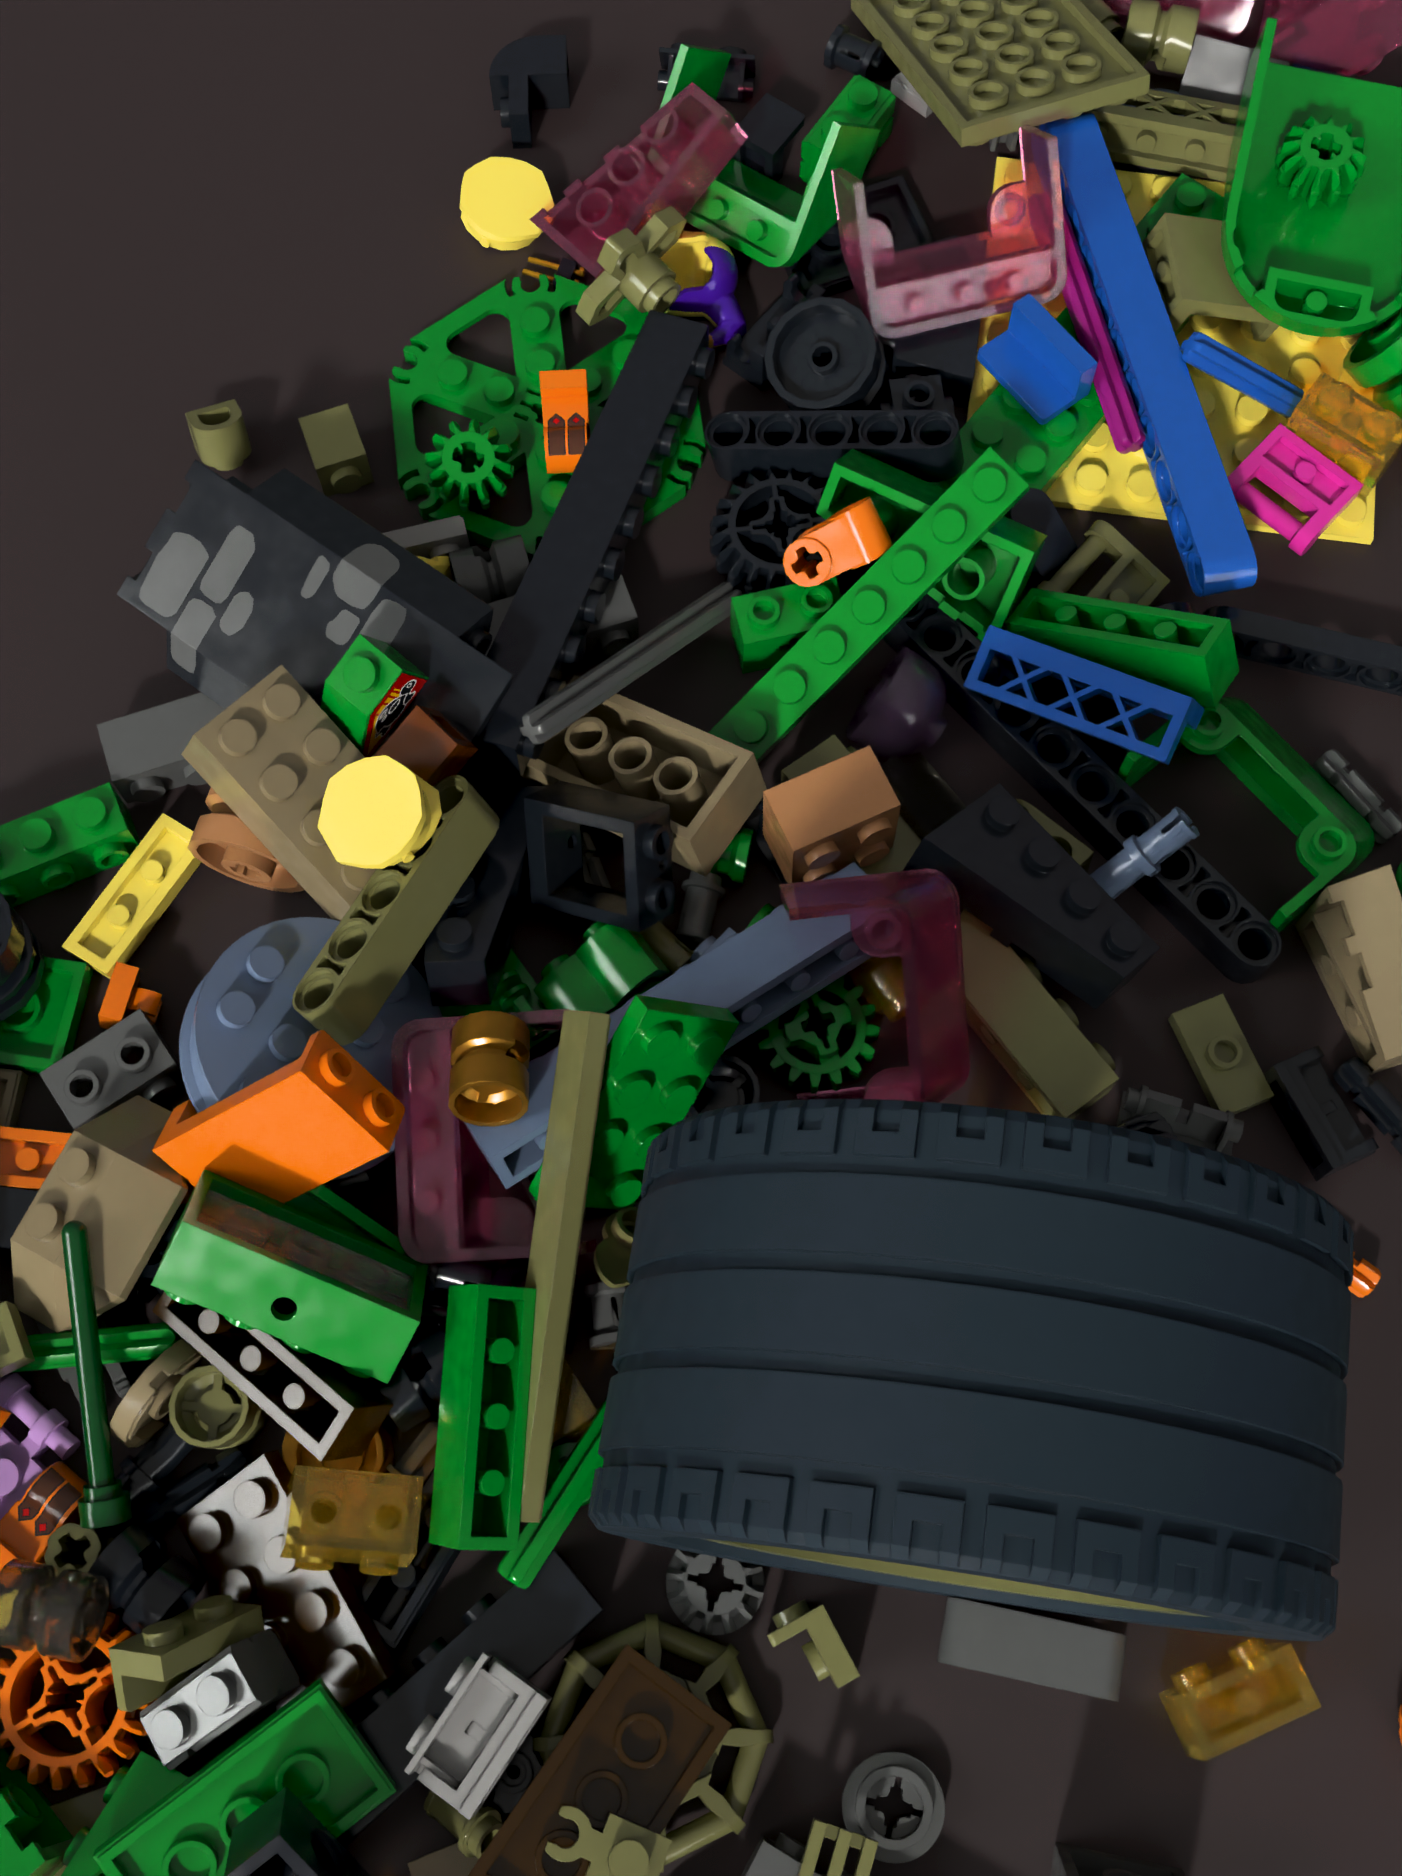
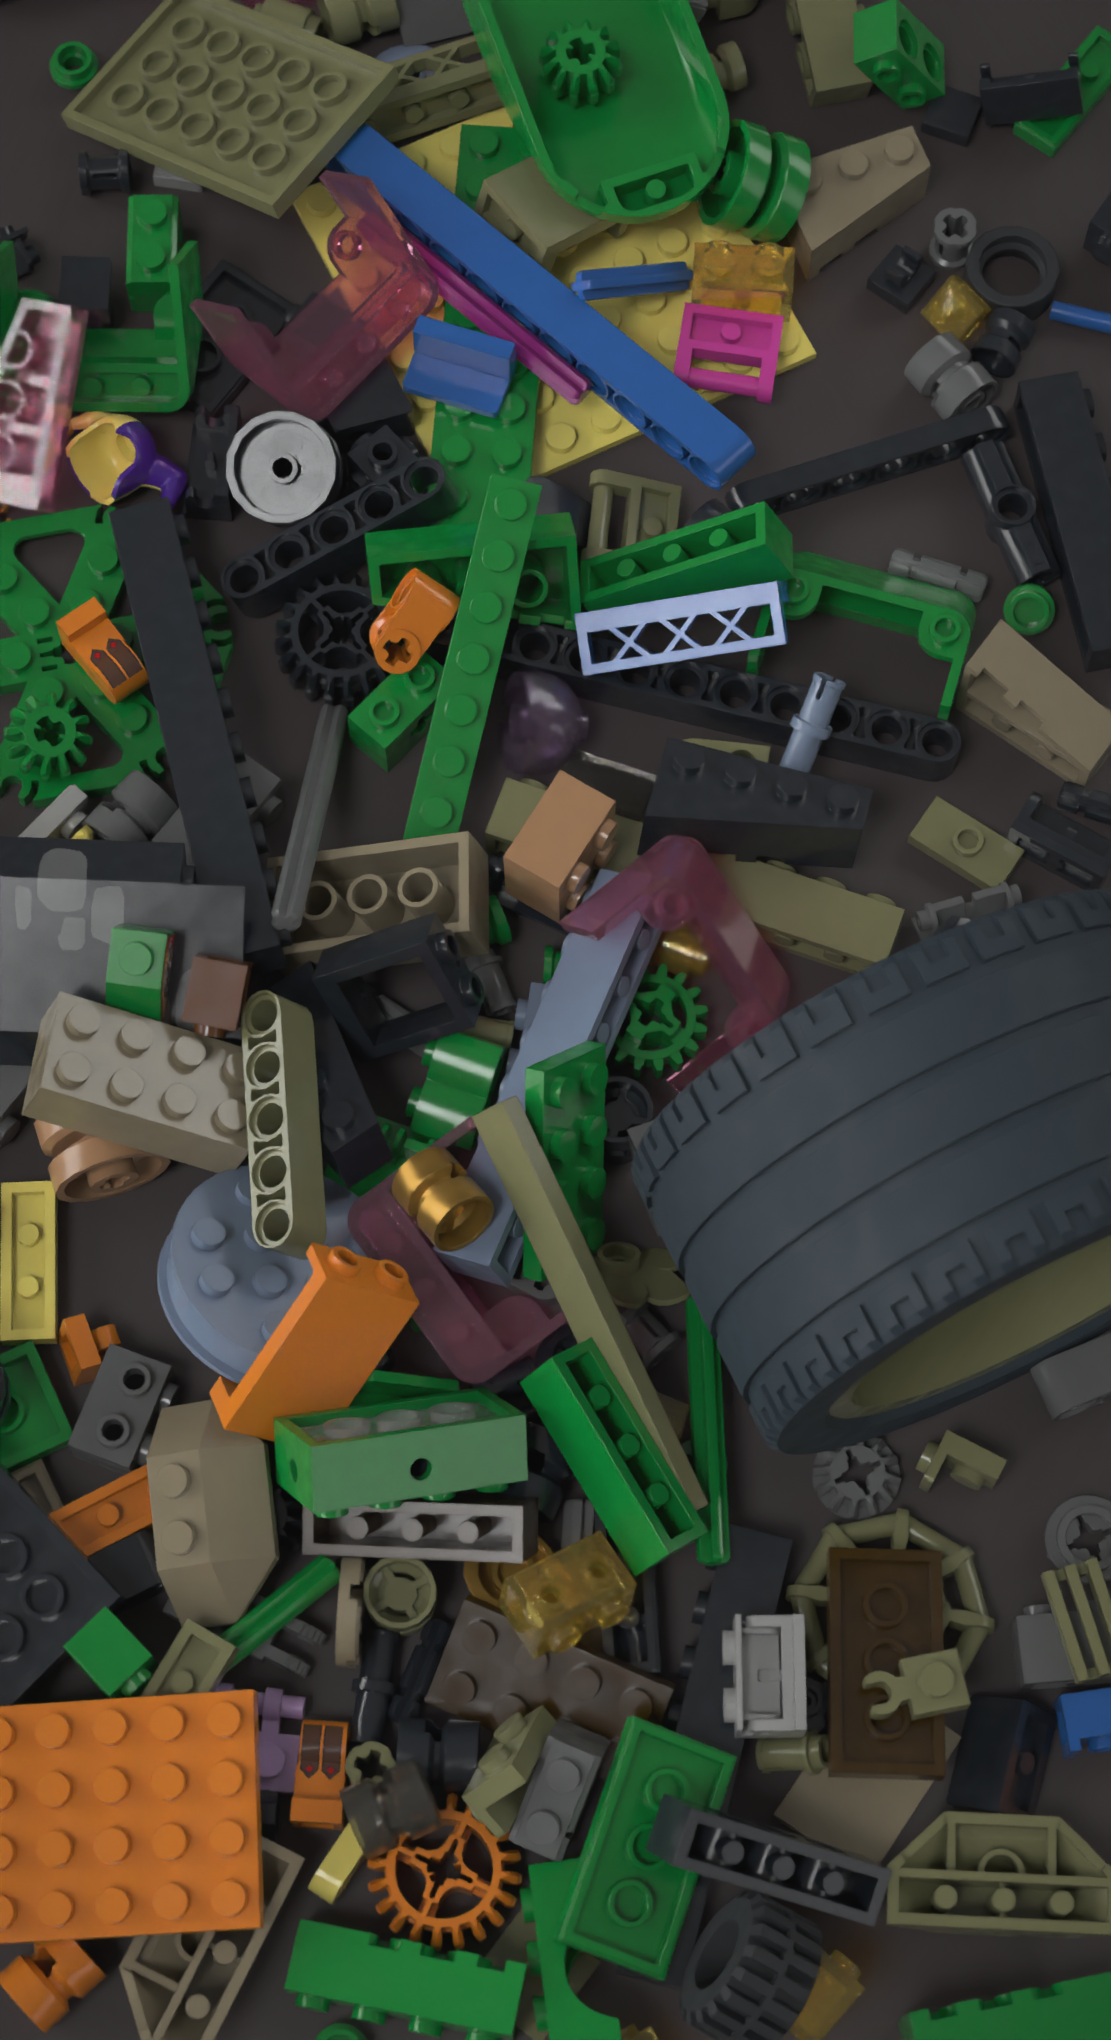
camera: 35 degrees left, 0 degrees up
(104, 1498) = (367, 1712): dark green piece -> none
(378, 813) = (224, 1059): light yellow hat -> none
(635, 269) = (74, 485): olive plant -> none

